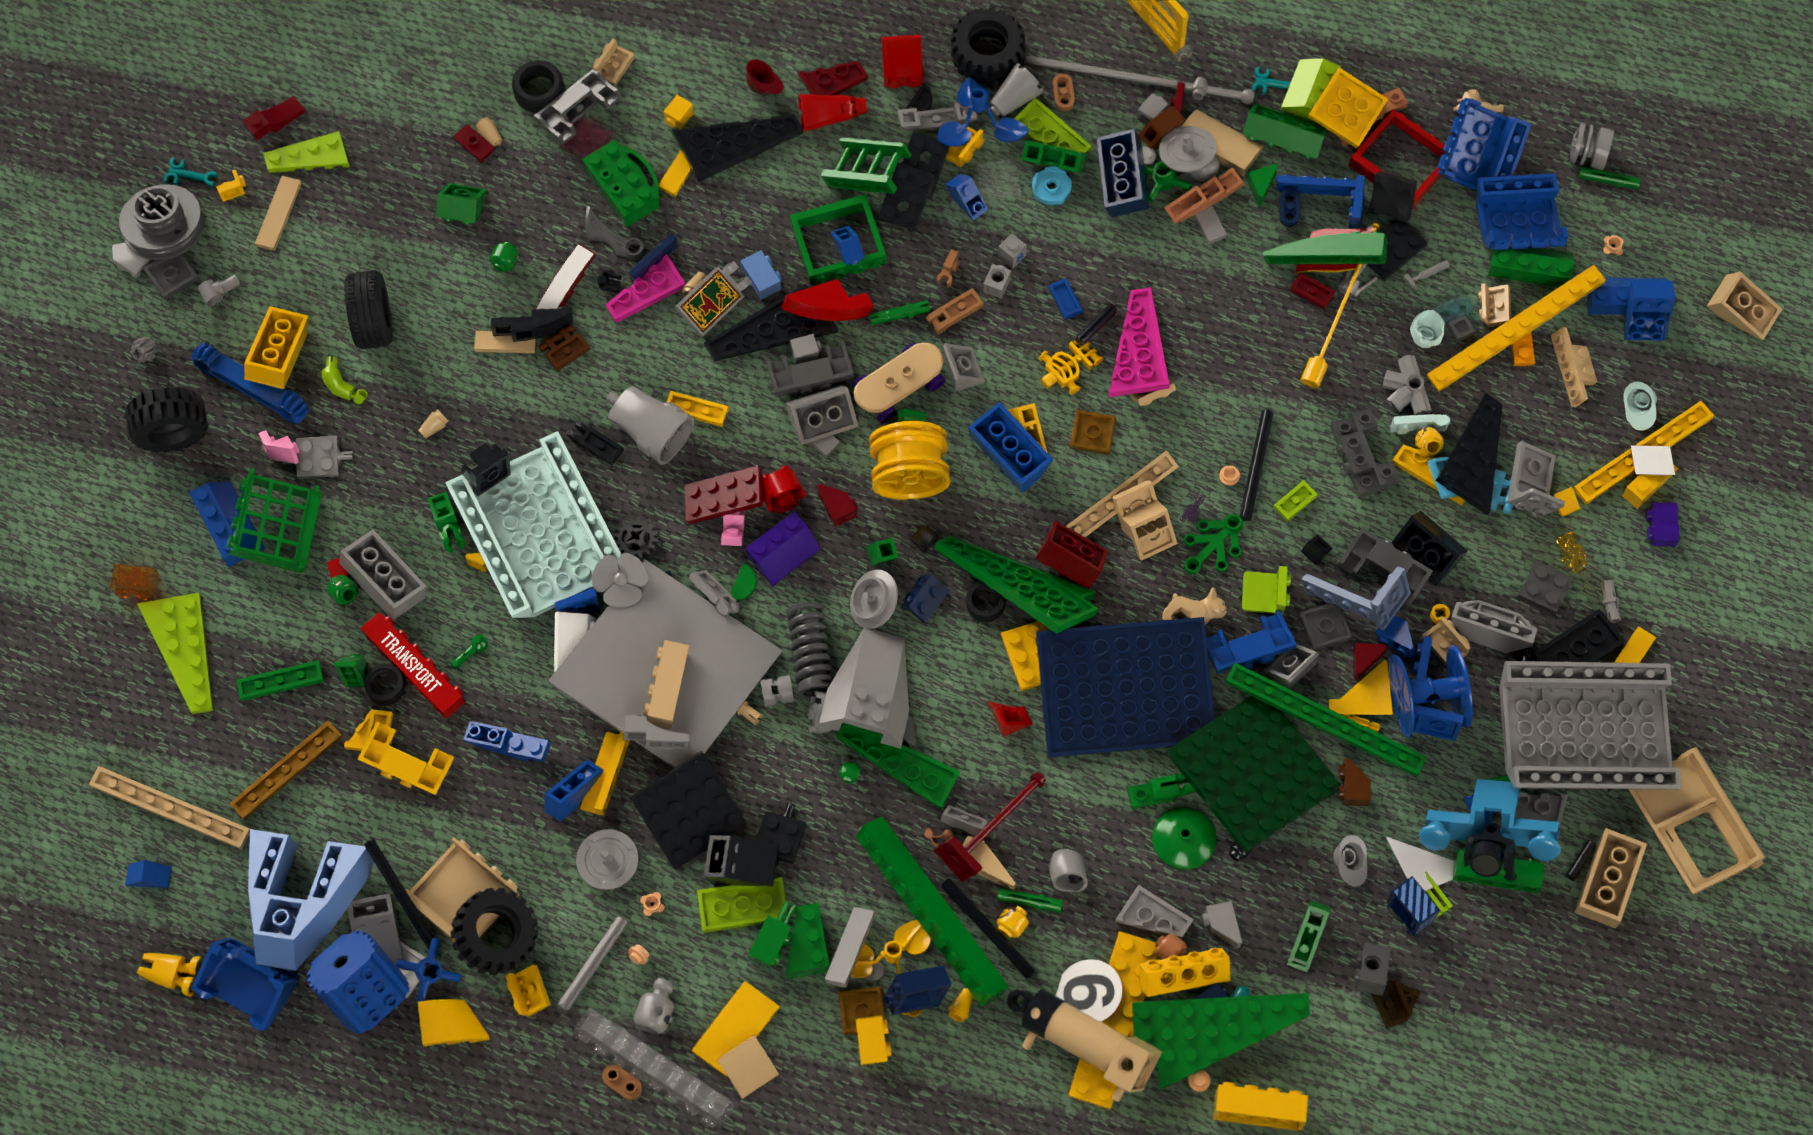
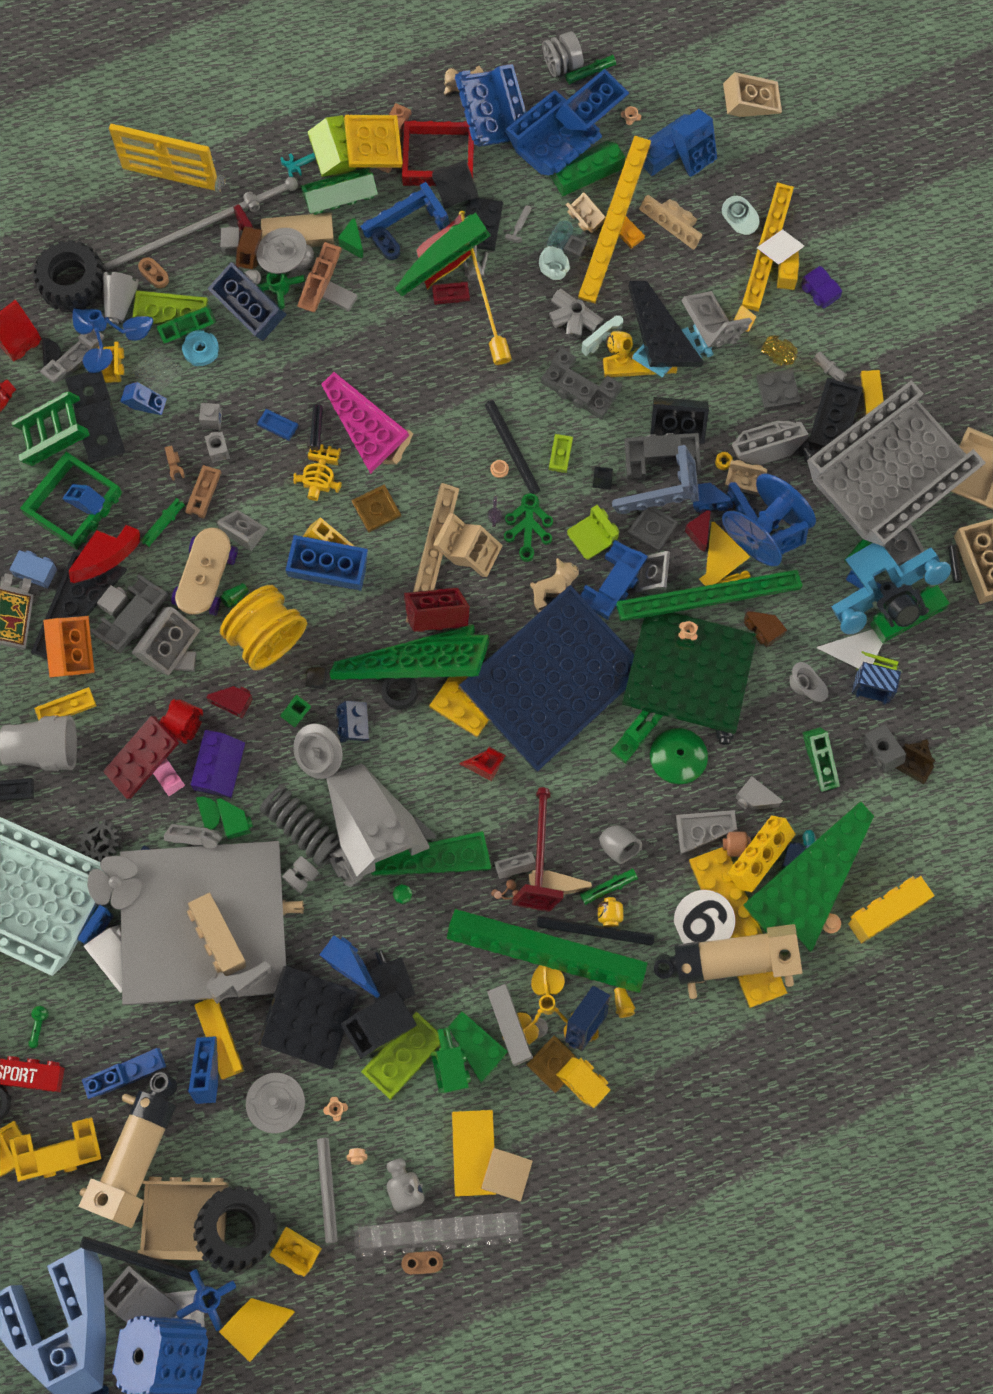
camera: 40 degrees left, 5 degrees up
(495, 792) = (147, 1120): none -> tan piece
(738, 360) = (68, 646): none -> orange slope
(757, 789) = (345, 960): none -> blue slope
(759, 605) = (234, 820): none -> green slope
(1282, 731) = (690, 626): none -> light nougat plate
(1581, 207) = (591, 102): none -> blue slope

